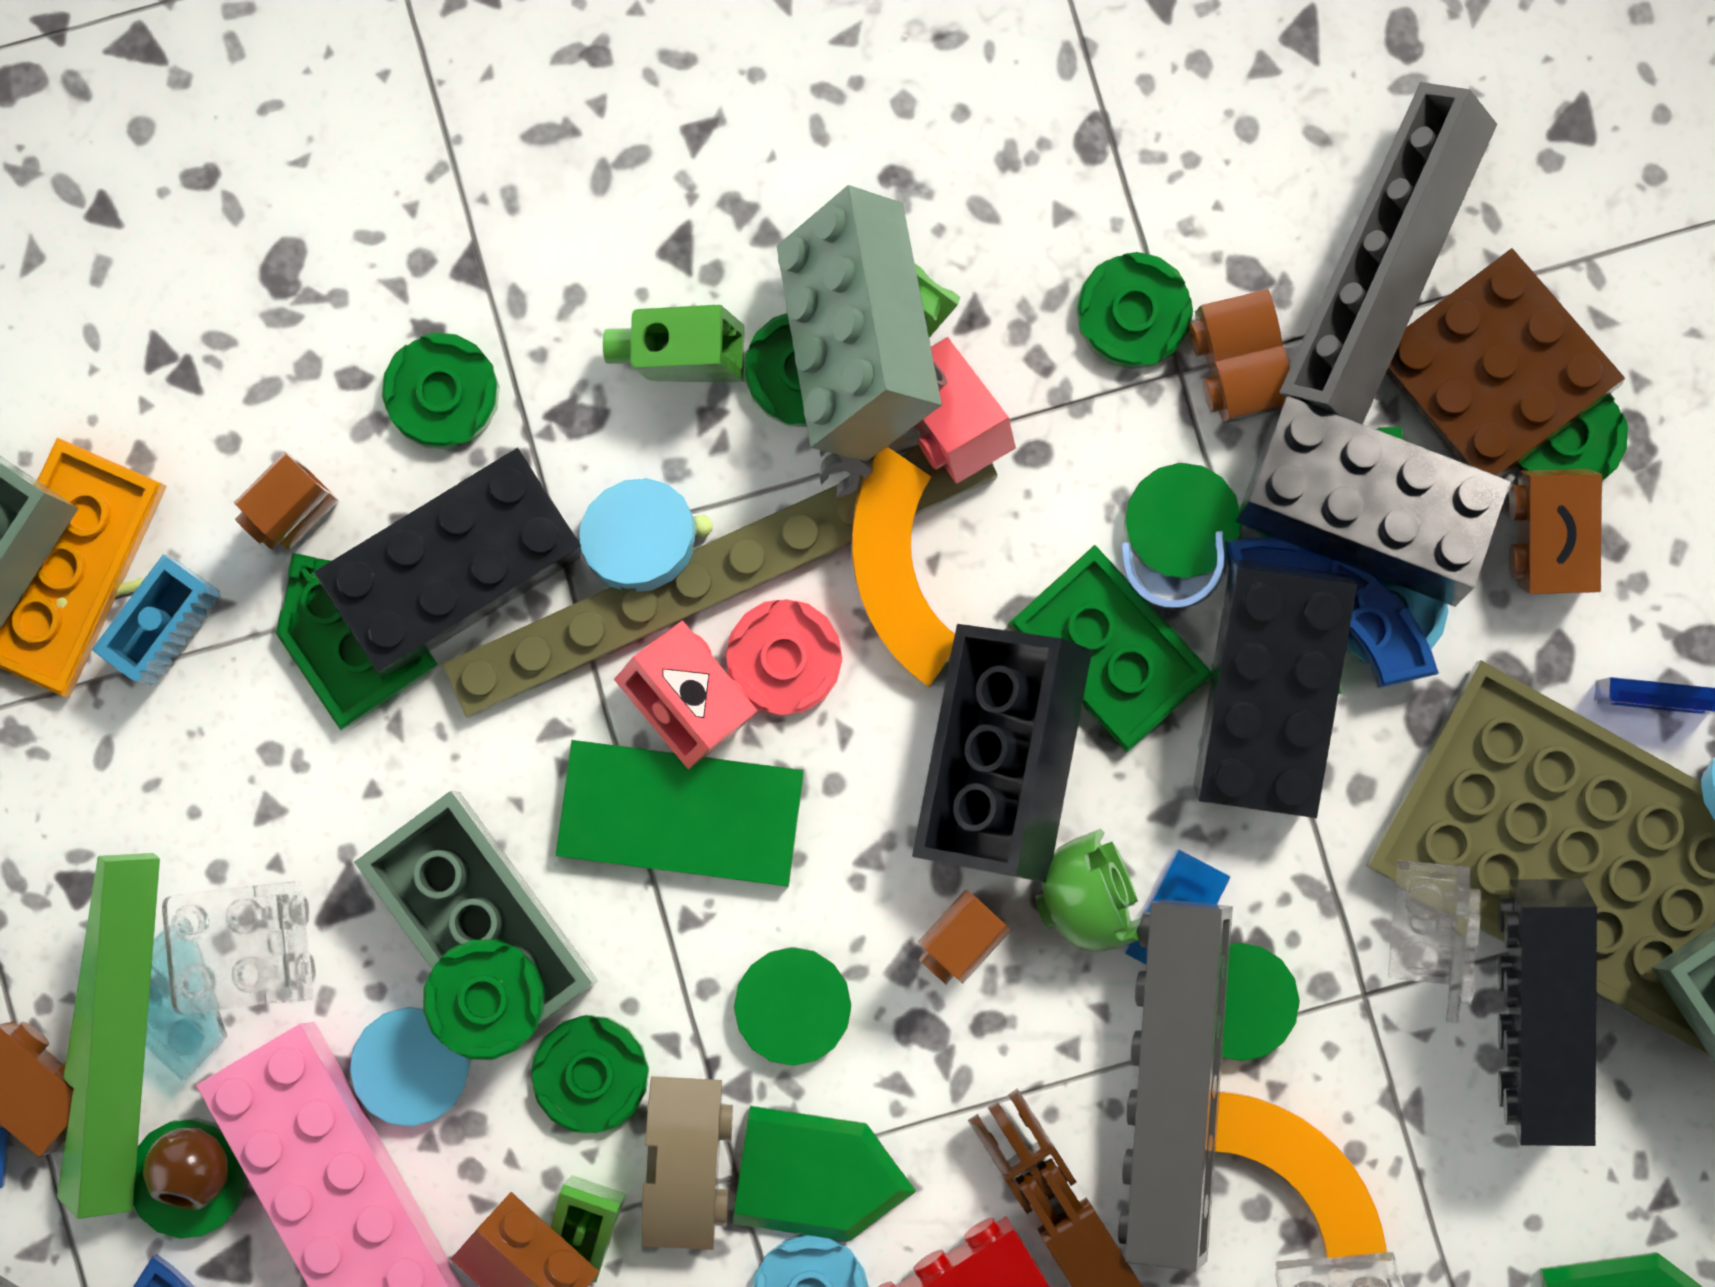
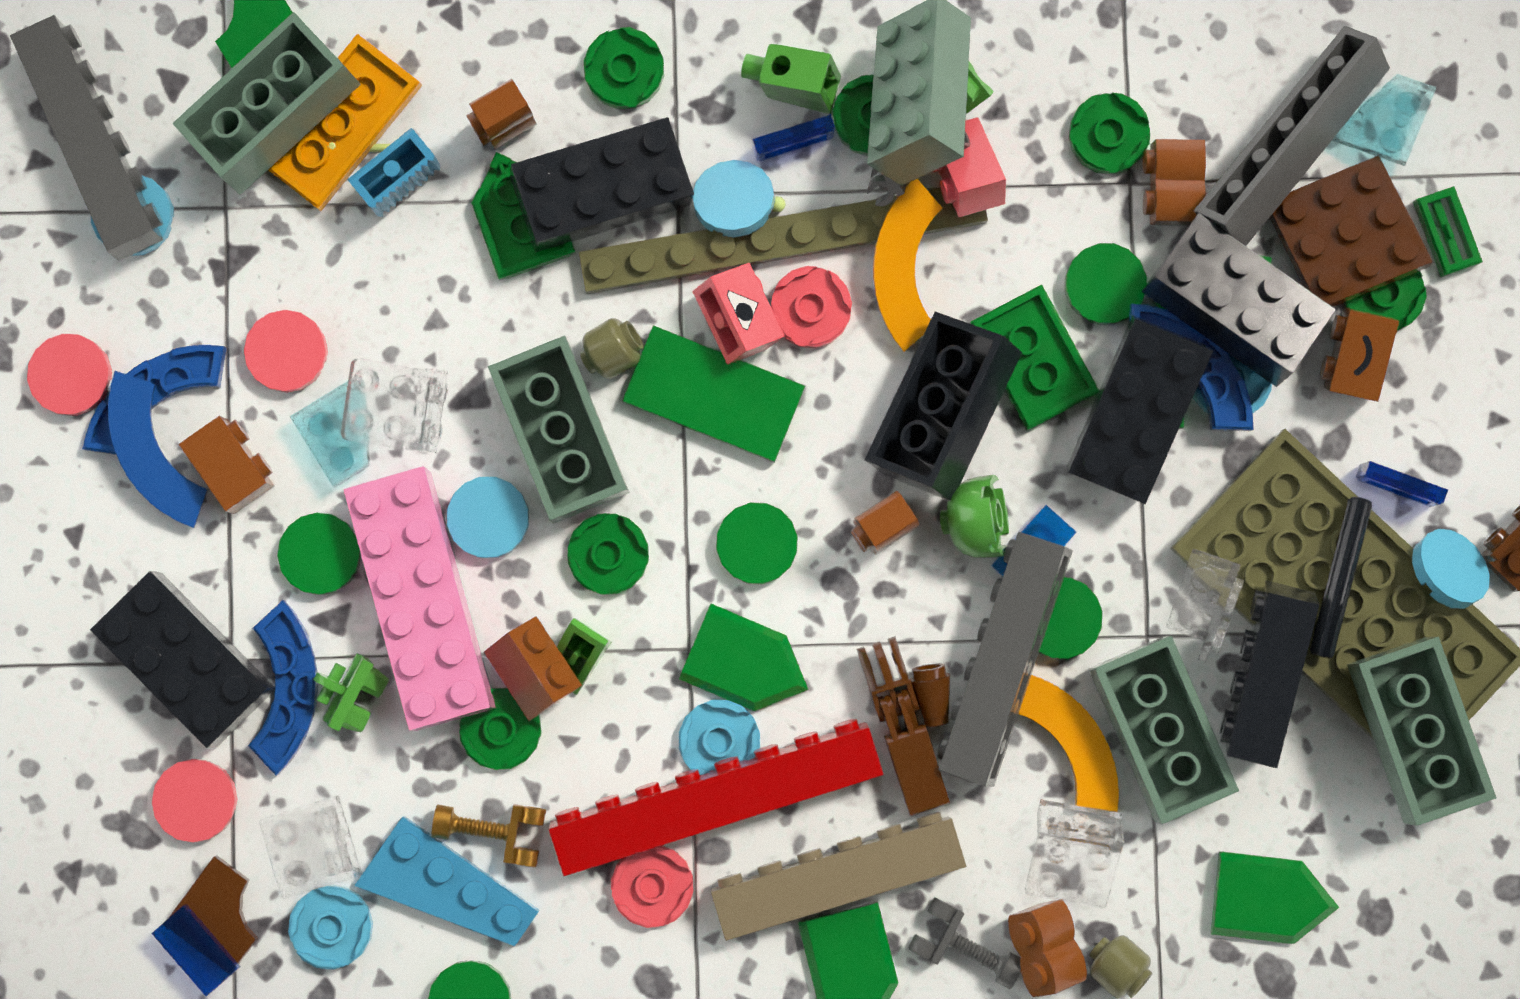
camera: 15 degrees right, 0 degrees up
(53, 904) = (285, 351): none -> coral tile
(110, 1038) = (293, 442): bright green slope -> none
(186, 1169) = (322, 544): reddish brown piece -> none
(483, 999) = (552, 479): green tile -> none
(521, 787) = (611, 348): none -> olive head
(683, 1163) = (656, 628): dark tan brick -> none
(700, 430) = (793, 138): none -> clear blue tile
(1088, 1151) = (932, 693): none -> reddish brown cone
(1194, 600) = (1094, 338): light blue helmet -> none
(1422, 1124) = (1163, 729): none -> sand green brick
(1515, 195) = (1389, 120): none -> clear light blue wing
(1612, 847) = (1341, 577): none -> black axle
(1615, 341) = (1433, 238): none -> green tile

